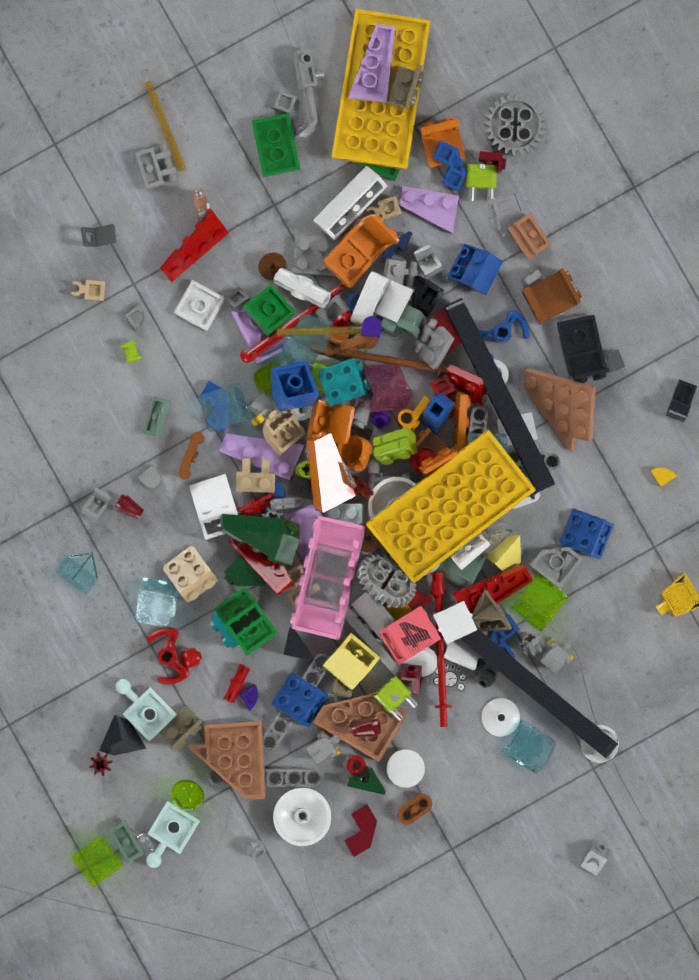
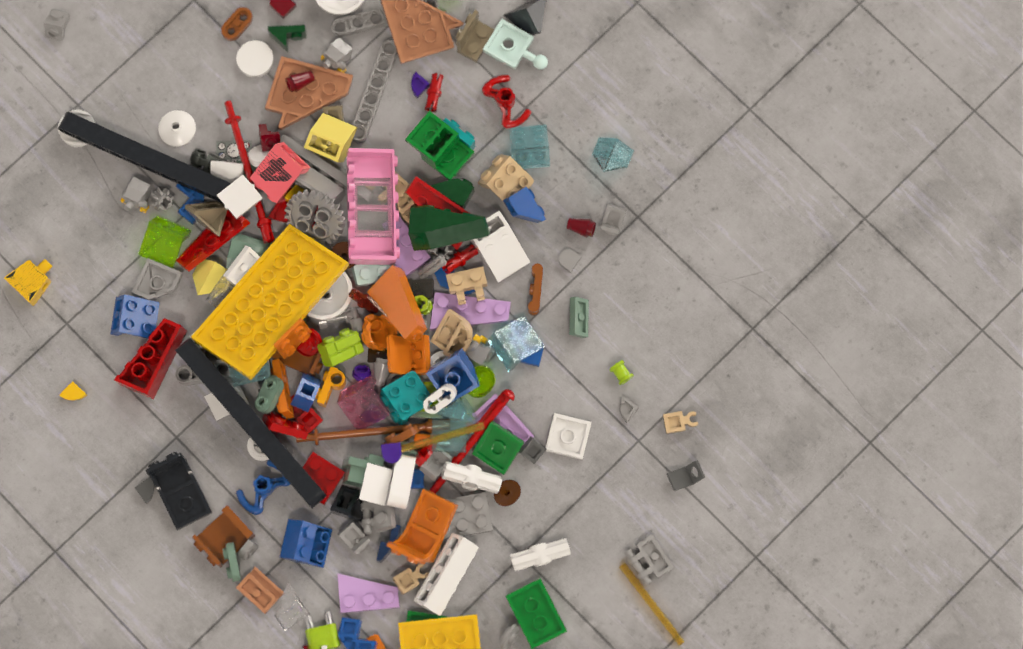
camera: 170 degrees right, 10 degrees down
(180, 541) = (524, 207): none -> blue slope
(191, 658) = (483, 104): red piece -> none
(200, 204) = (593, 532): nougat piece -> none
(202, 239) = (588, 489): red wing -> none
(256, 199) = (540, 554): none -> white piece
(295, 646) = (385, 137): black slope -> none
(300, 699) = (371, 92): blue bracket -> none
(312, 371) = (437, 395): none -> white beam
(351, 760) = (302, 44): red plate -> none
(392, 695) = (283, 116): lime piece -> none
(437, 347) = (322, 454): light grey plate -> none
(474, 415) = (269, 394): none -> sand green plate
(530, 747) = (142, 106): clear light blue slope -> none
(549, 277) = (230, 554): none -> sand green plate
(564, 404) = (184, 431): nougat wing -> none
(579, 483) = (153, 360): none -> red wedge
(681, 401) = (71, 467): black plate -> none

